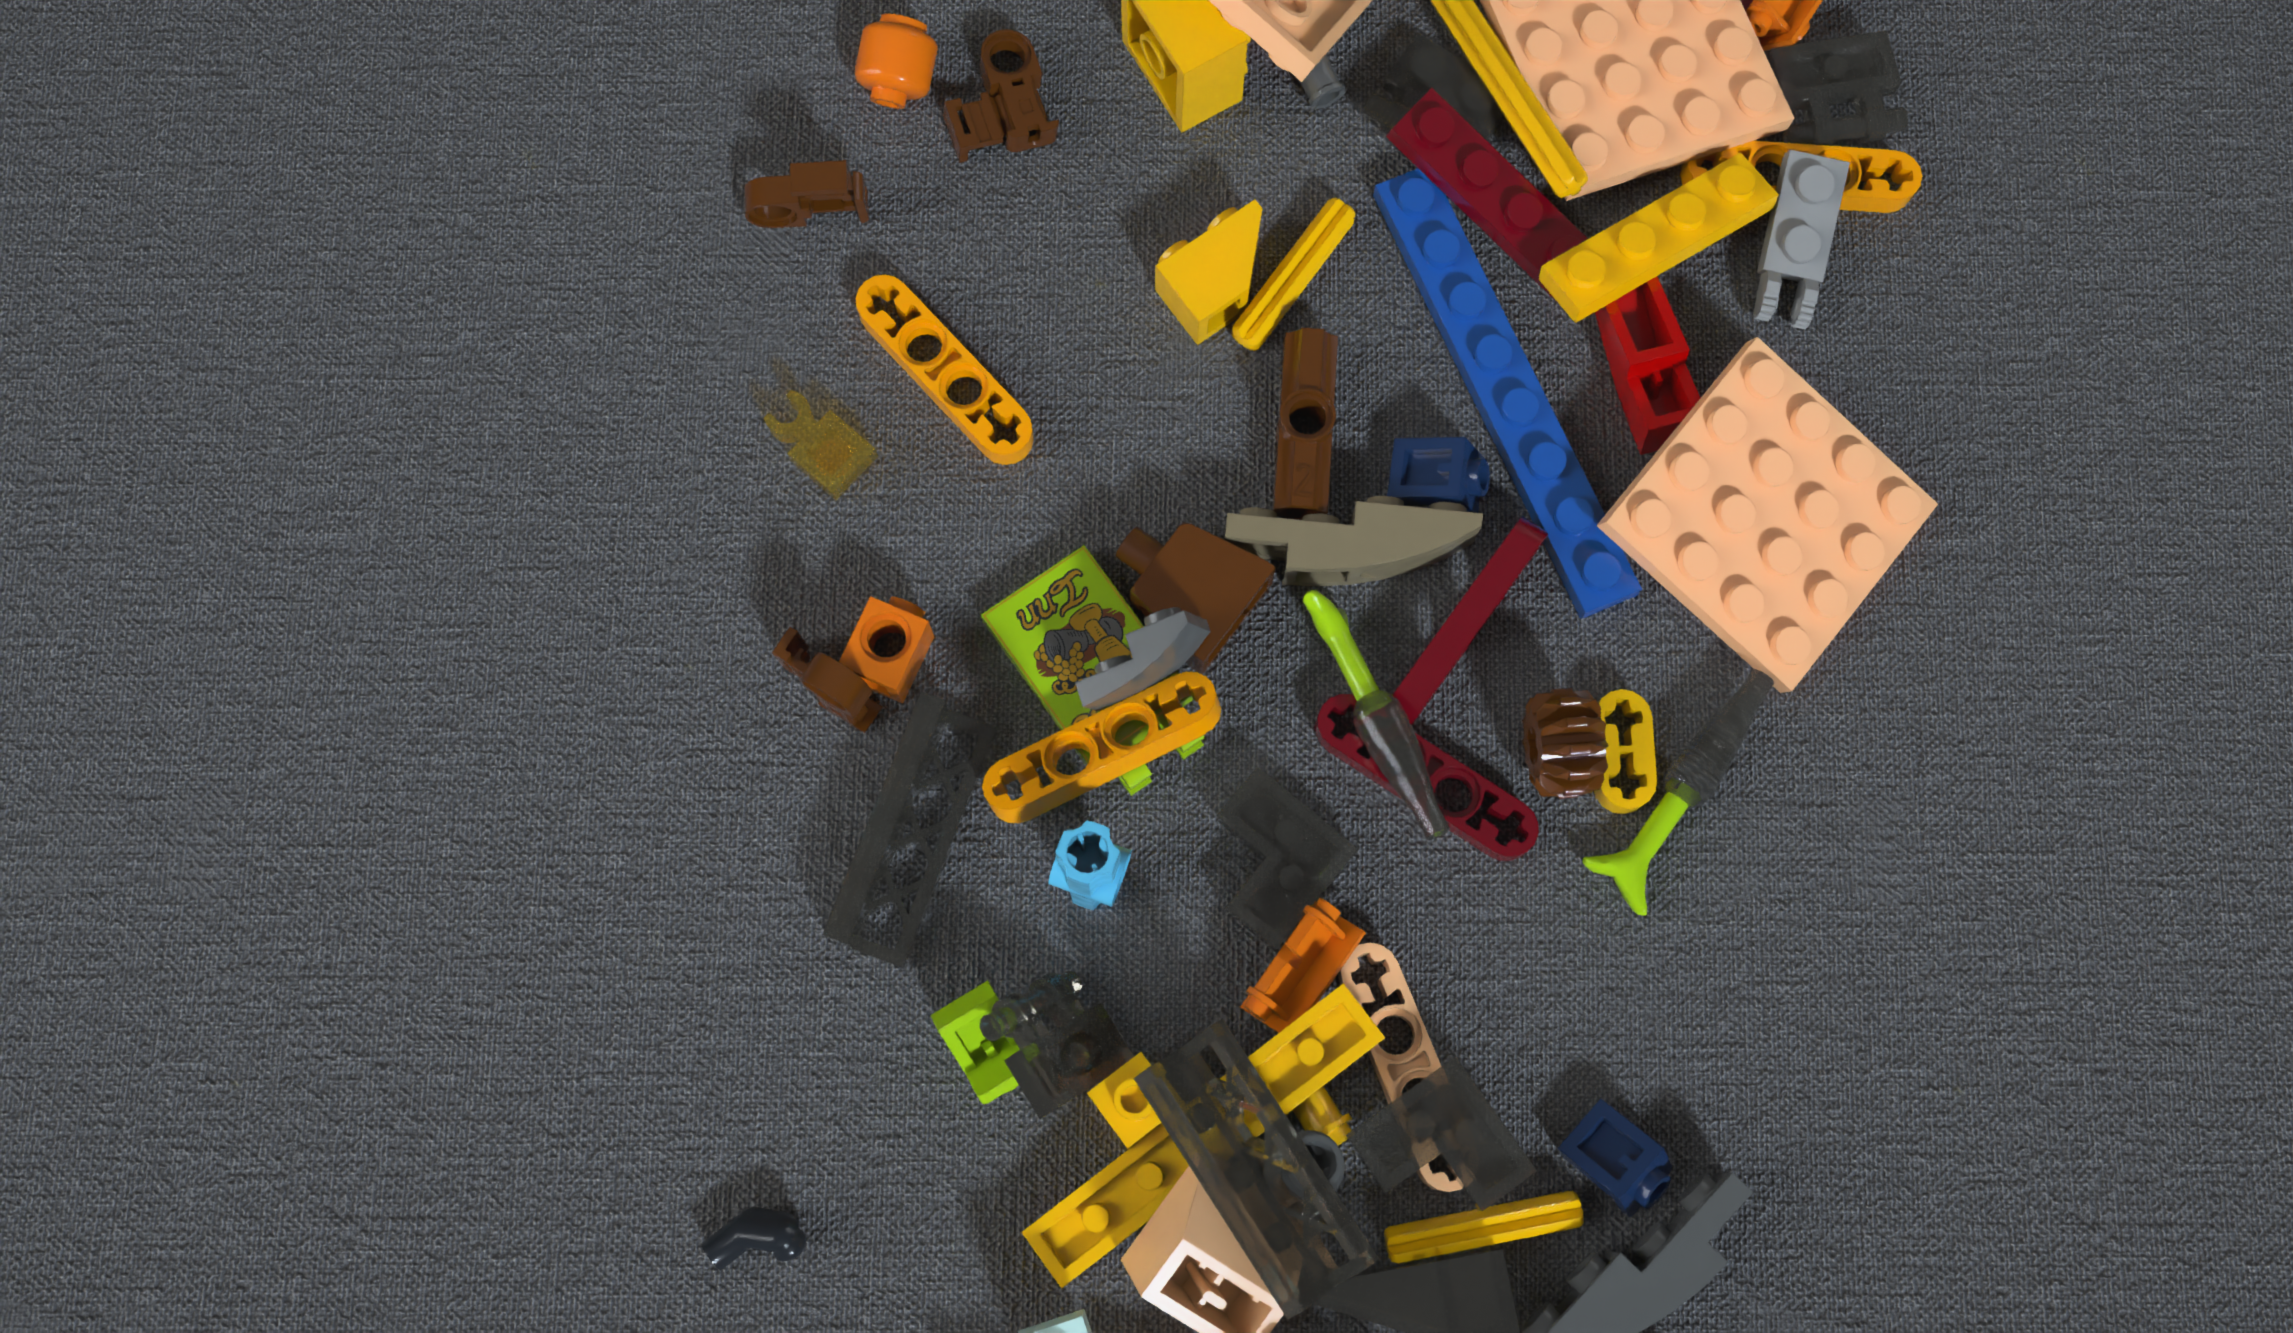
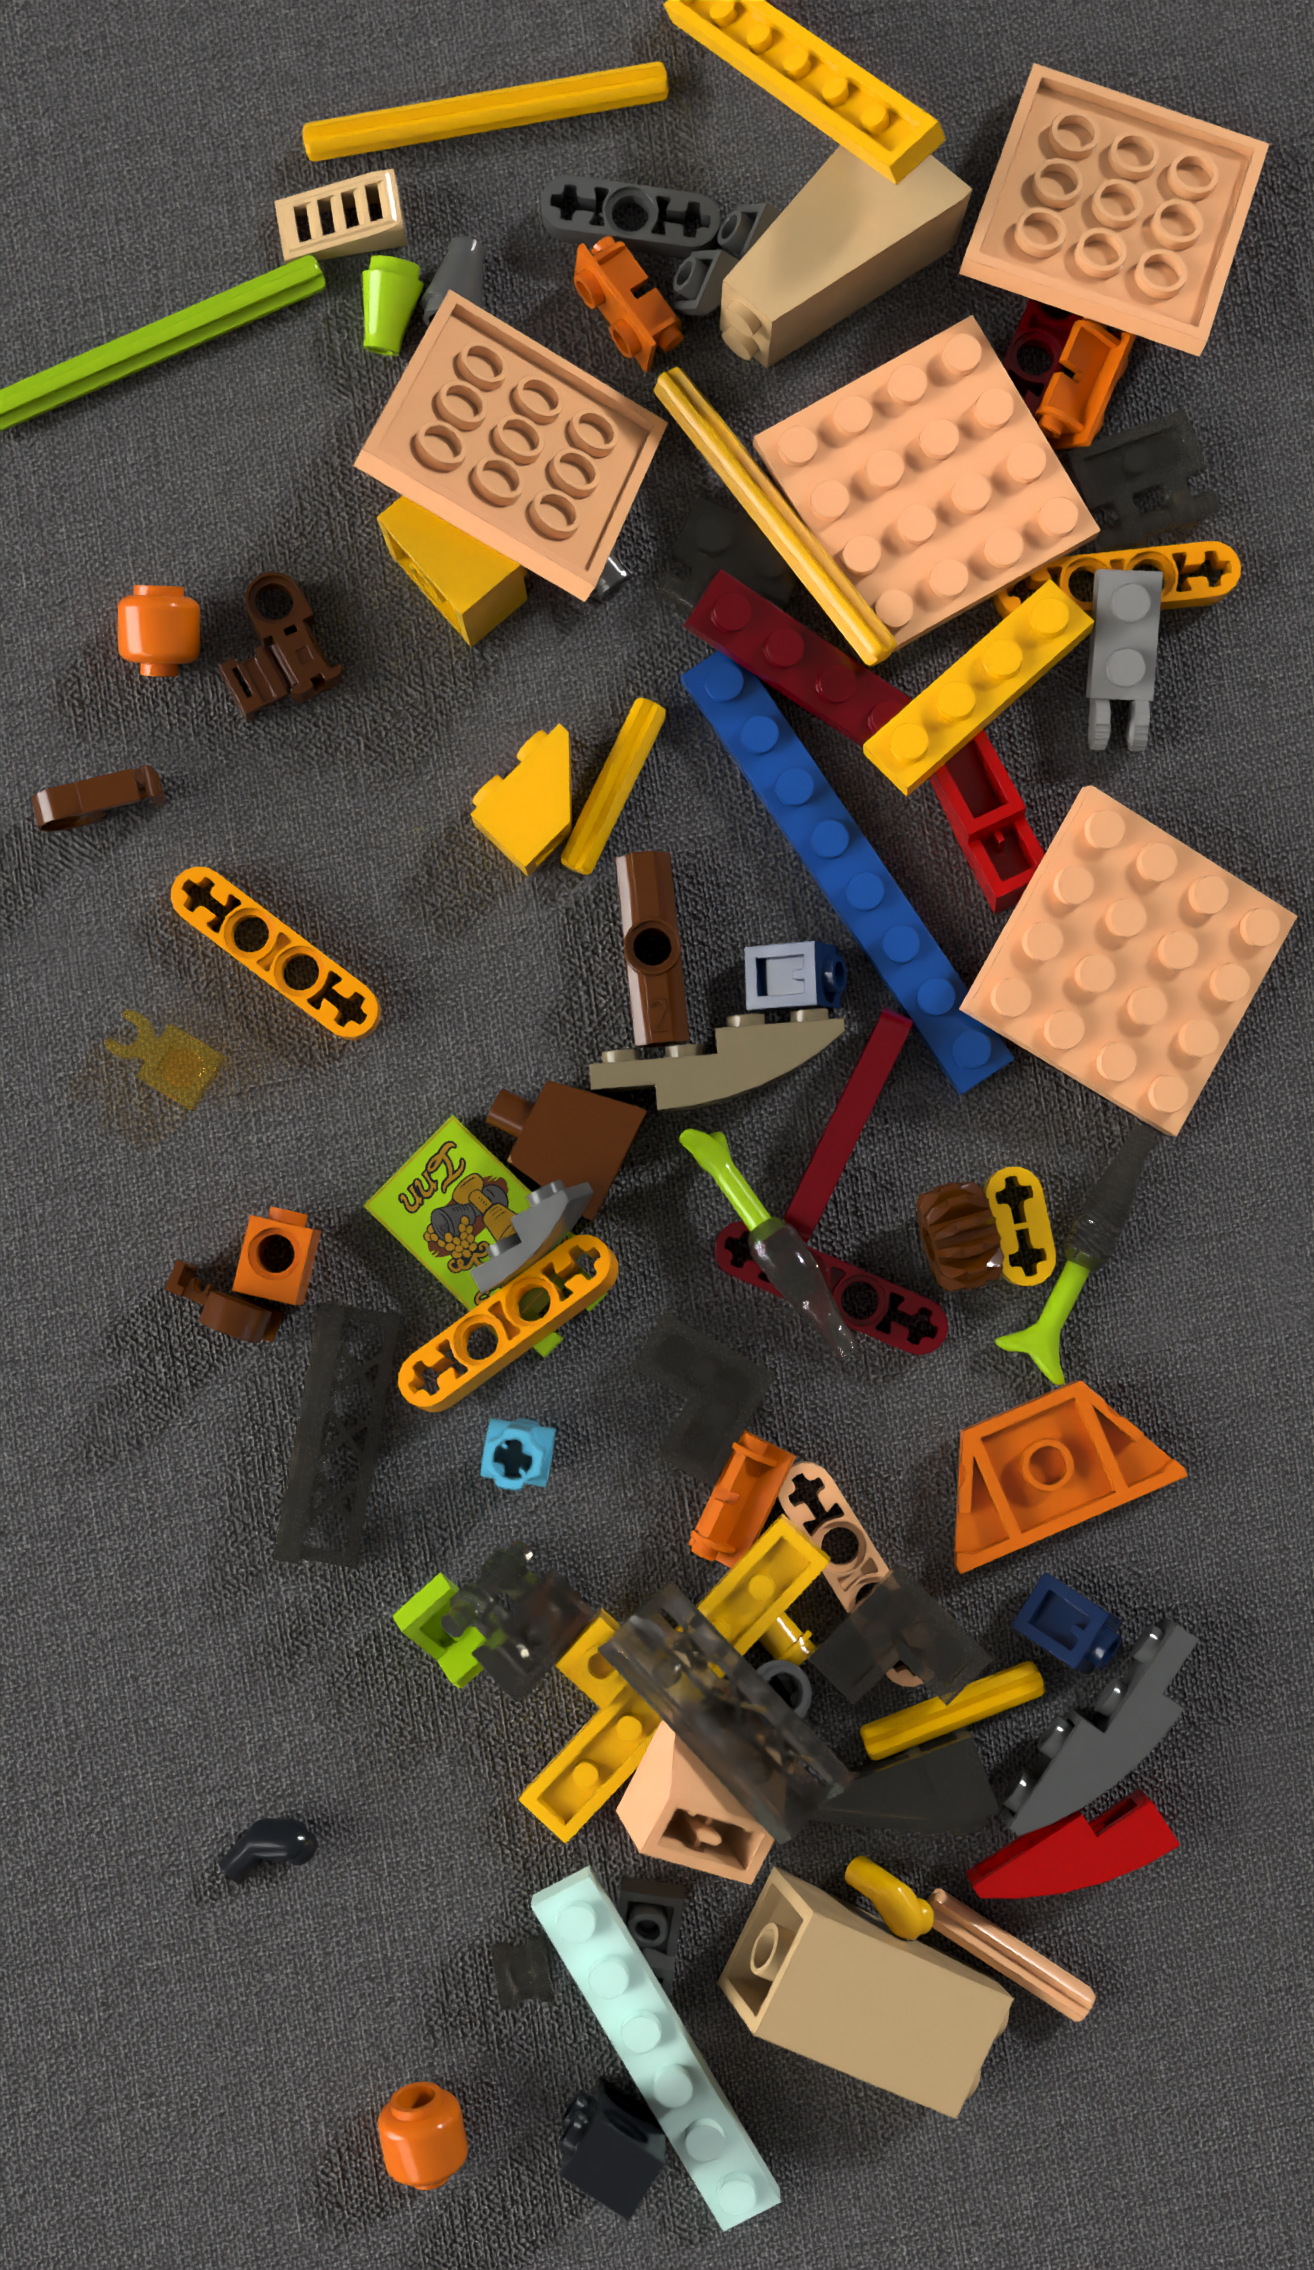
camera: 10 degrees left, 10 degrees up
(1618, 996) = (1047, 1471): none -> orange wing

